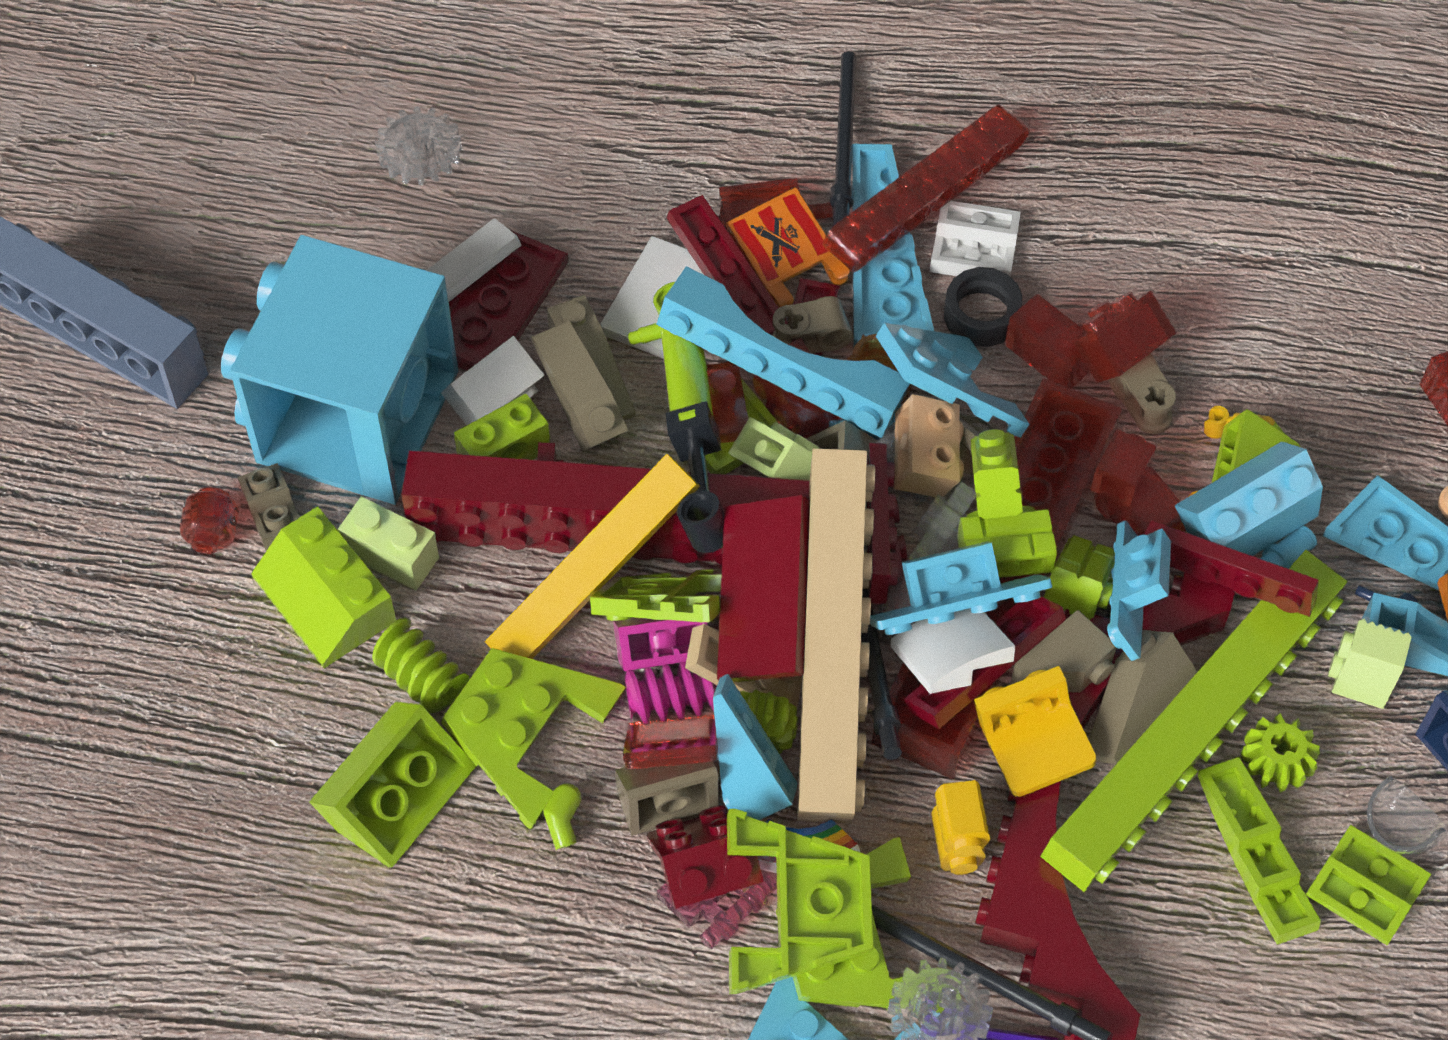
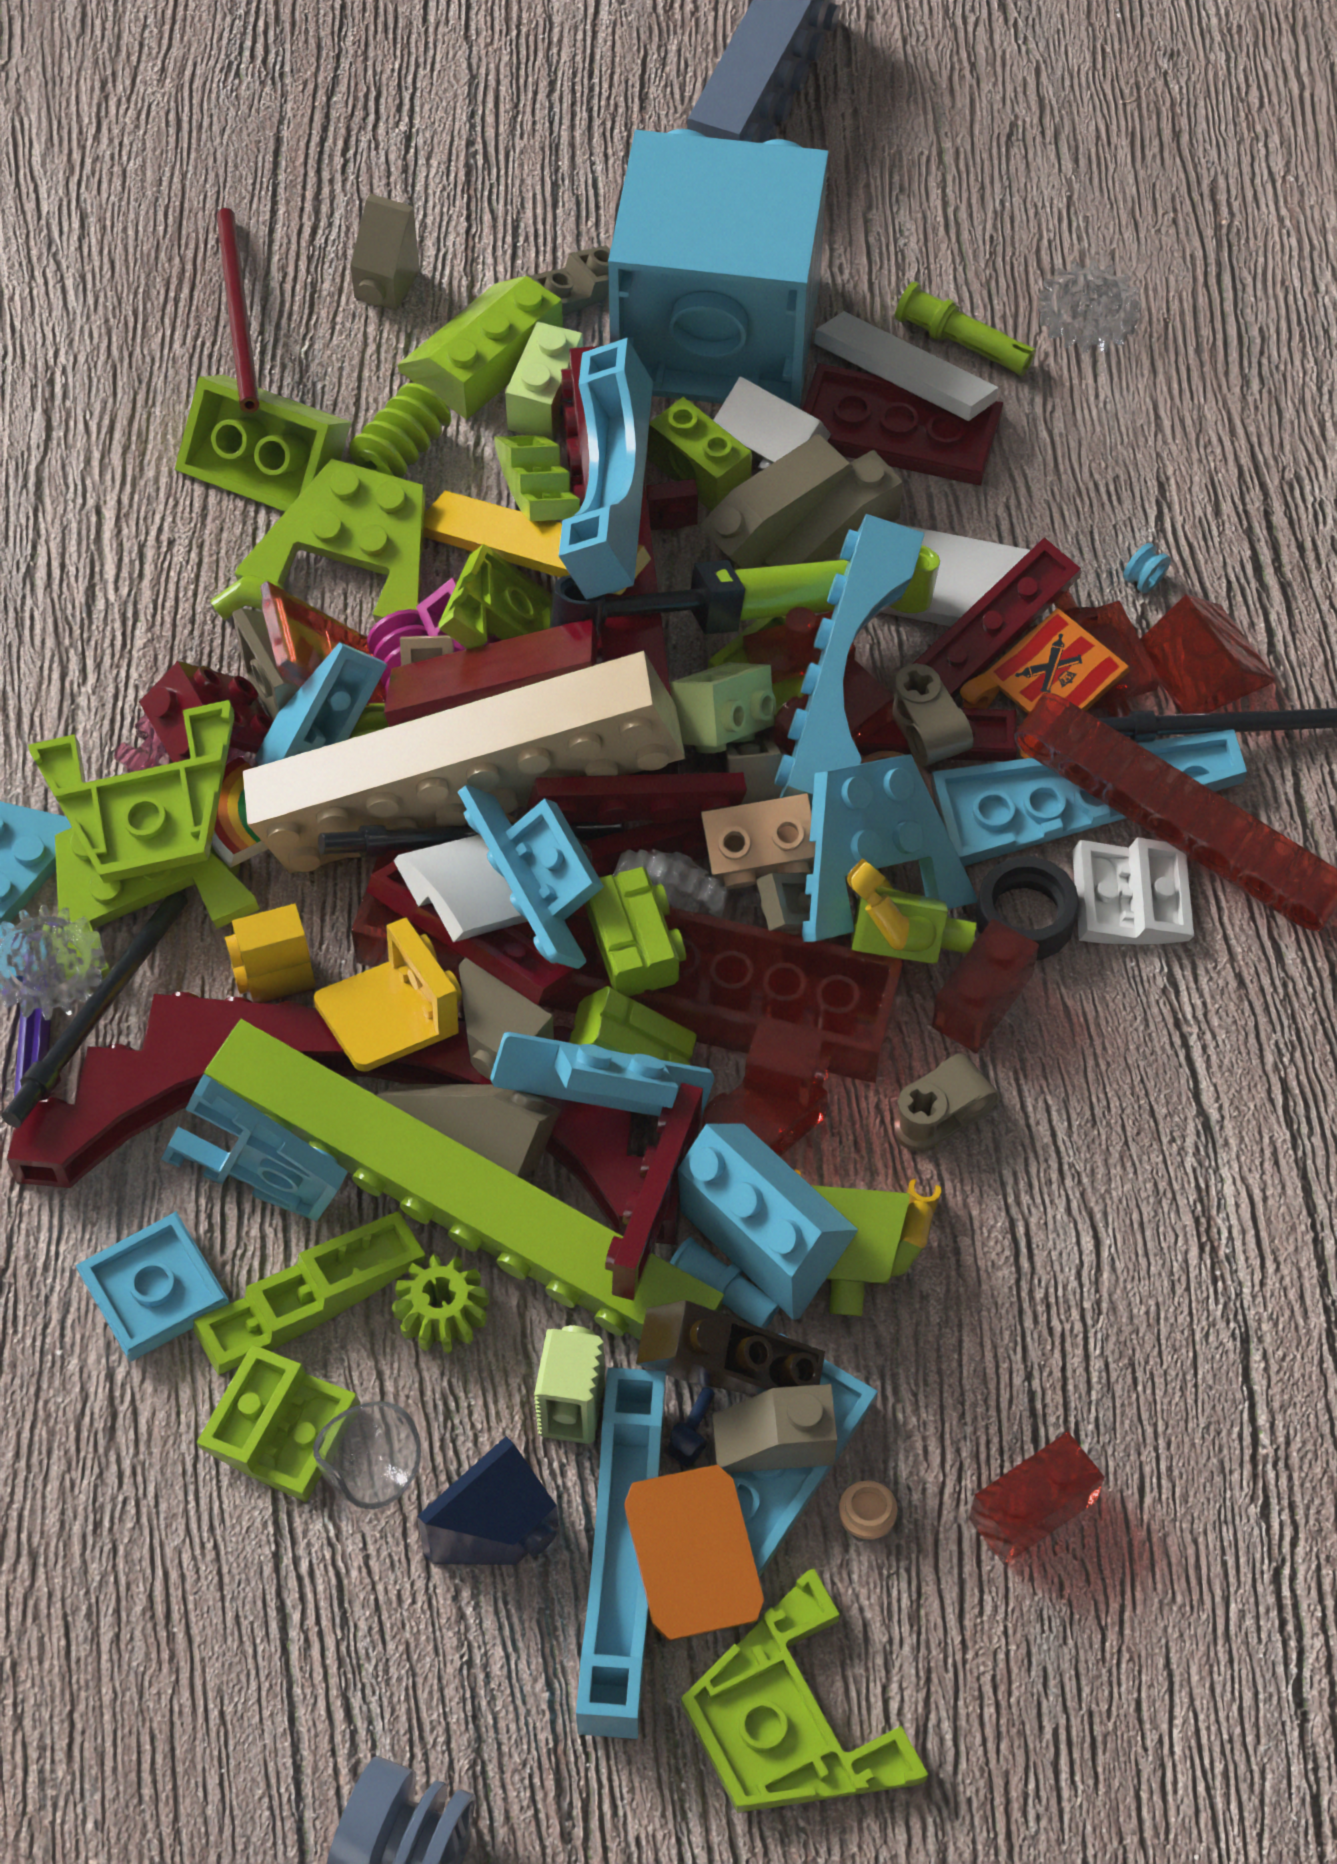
camera: 80 degrees right, 0 degrees up
(209, 519) = (544, 231): clear red head -> none
(210, 645) = (385, 253): none -> dark tan slope
(243, 774) = (237, 311): none -> dark red piece
(402, 244) = (946, 321): none -> lime pin
(502, 559) = (536, 477): none -> lime slope
(579, 464) = (603, 535): none -> medium azure arch
(688, 165) = (1146, 568): none -> medium azure bush
(778, 150) = (1203, 657): none -> clear red slope
(996, 474) = (709, 893): lime brick -> none
(1007, 371) = (902, 922): none -> lime torso
(1122, 334) = (985, 1038): clear red brick -> none
(1156, 860) = (265, 1155): none -> medium azure wing
(1242, 966) = (152, 1286): none -> medium azure plate
(1362, 553) = (724, 1351): none -> dark brown slope
(1418, 533) = (777, 1430): none -> dark tan slope

